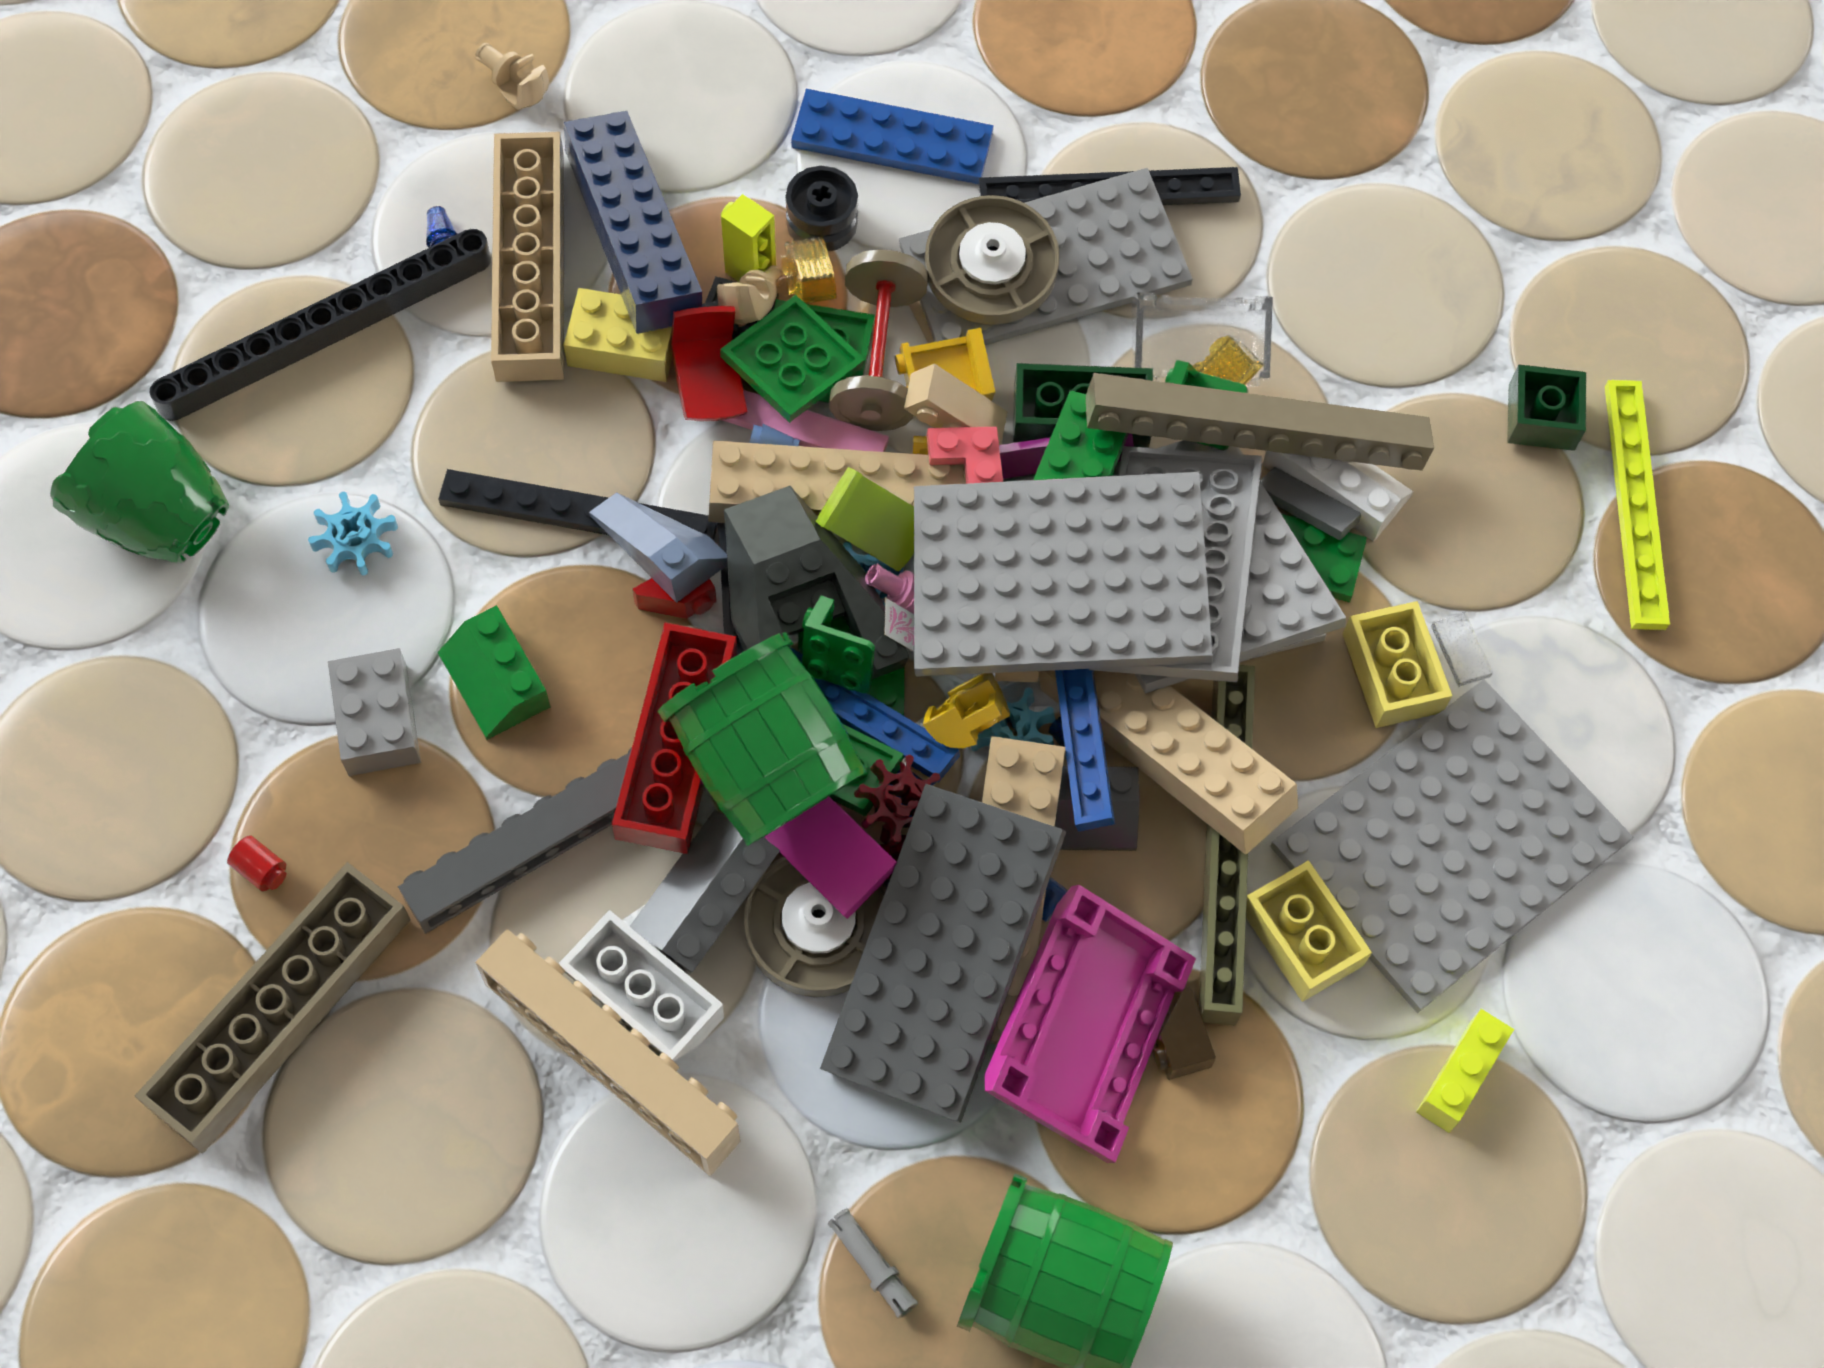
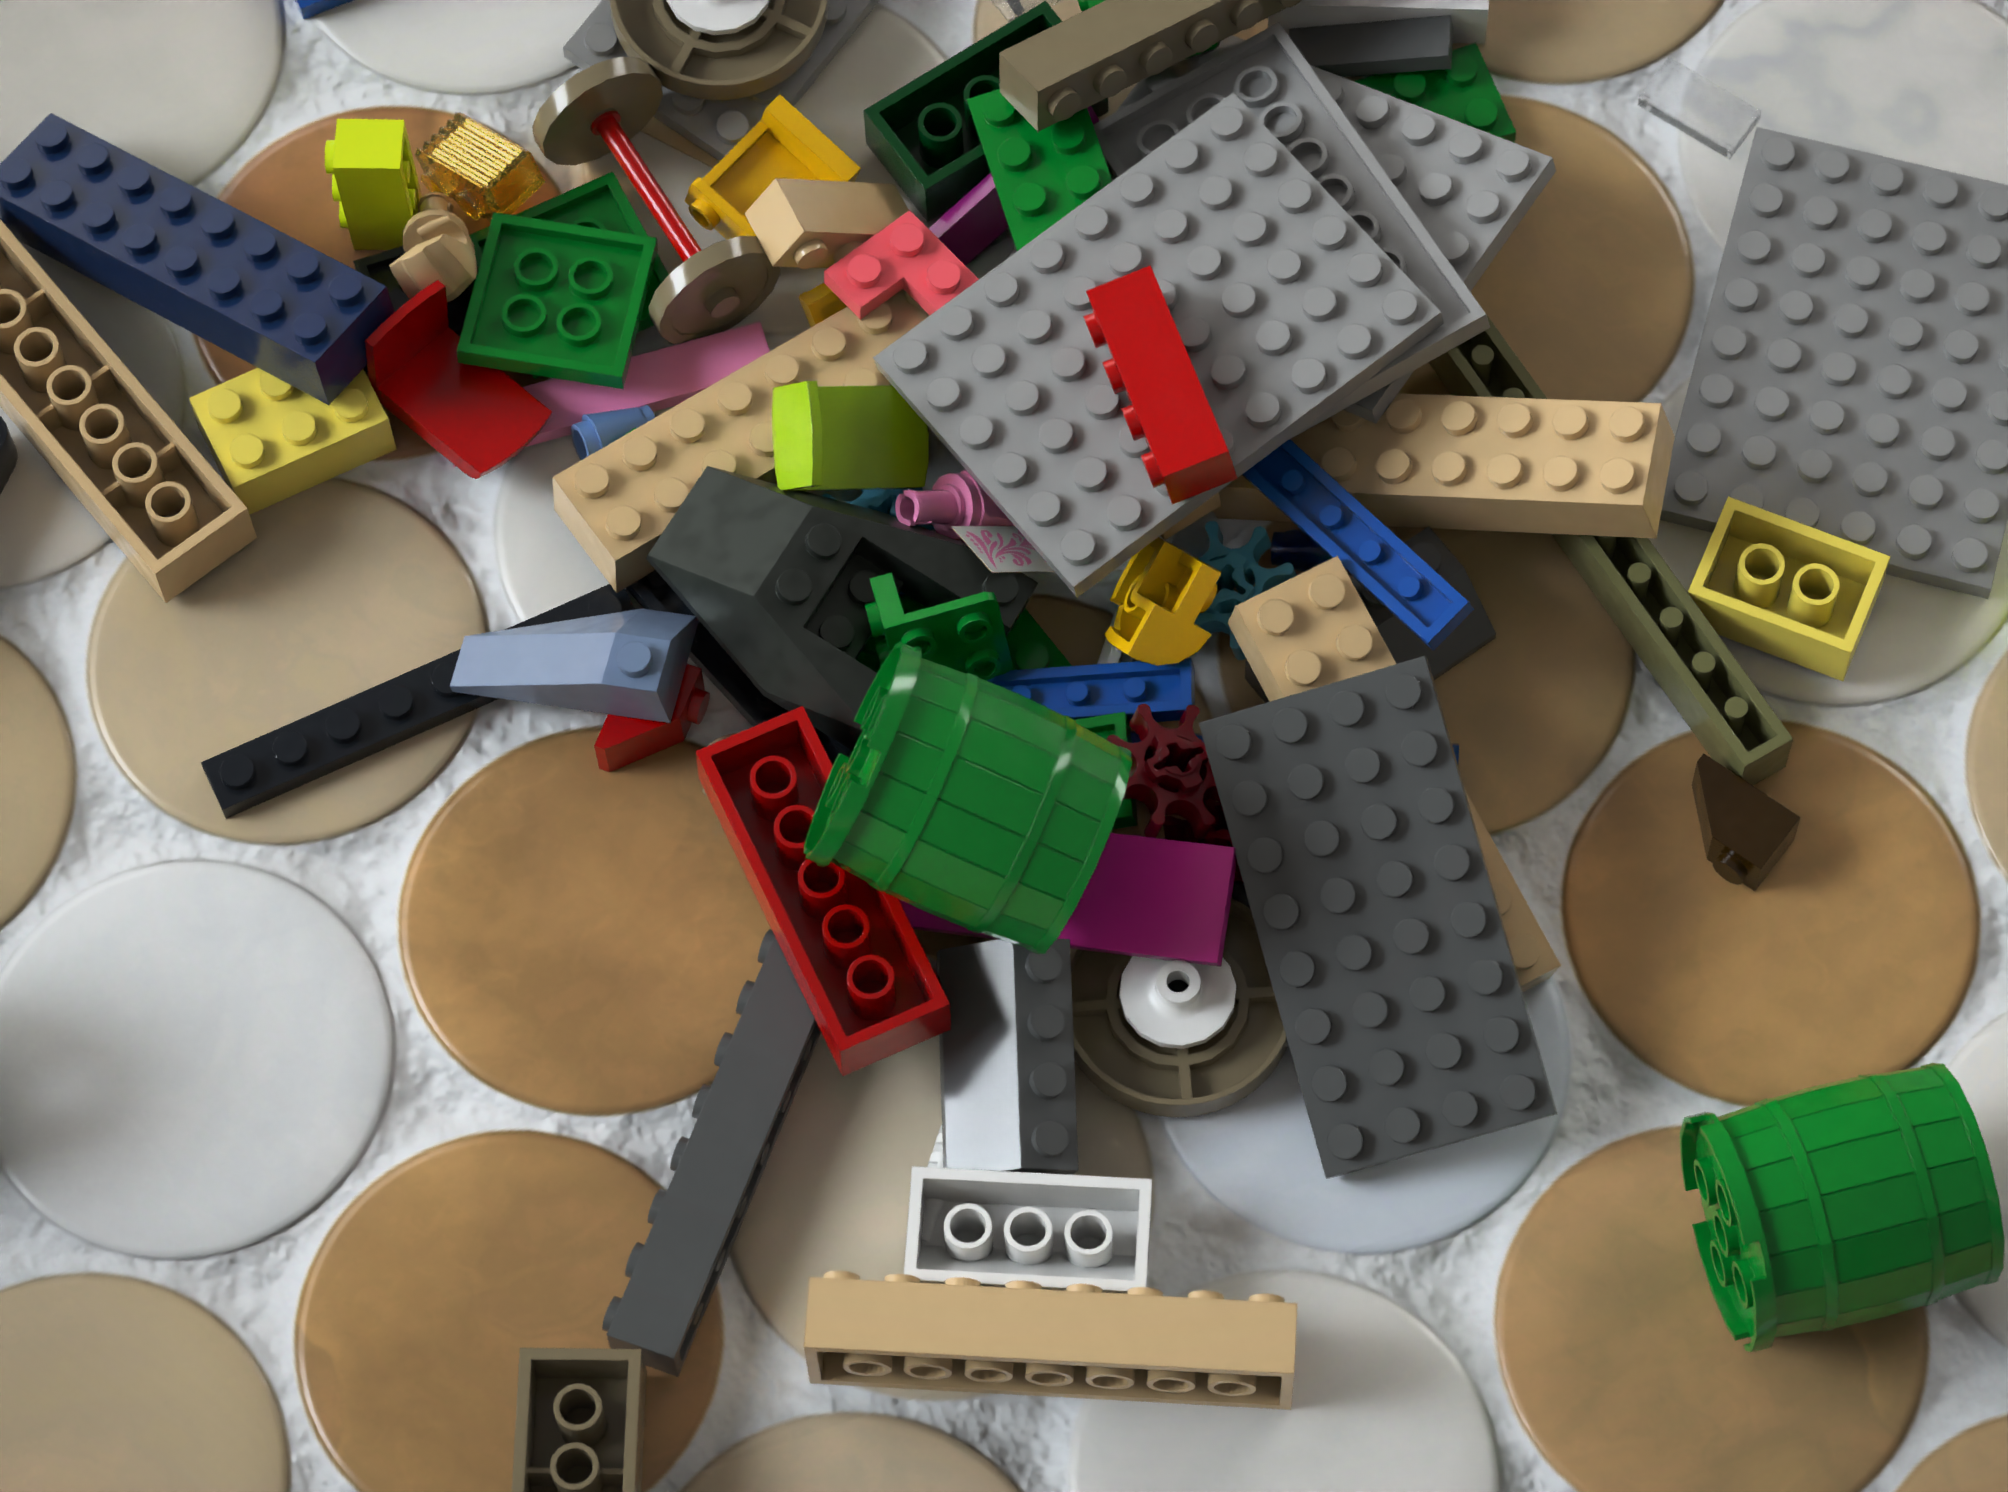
camera: 30 degrees left, 0 degrees up
(257, 864) = (388, 1442): red brick -> none
(353, 533) = (166, 940): medium azure gear -> none
(374, 712) = (378, 1141): light grey brick -> none
(493, 673) = (493, 983): green slope -> none
(822, 204) = (424, 69): black wheel -> none
(882, 1276) = (1579, 1363): light grey pin -> none
(1034, 594) = (1160, 384): none -> red brick
(1087, 1022) = (1614, 880): dark pink slope -> none
(1396, 664) = (1642, 180): light yellow brick -> none

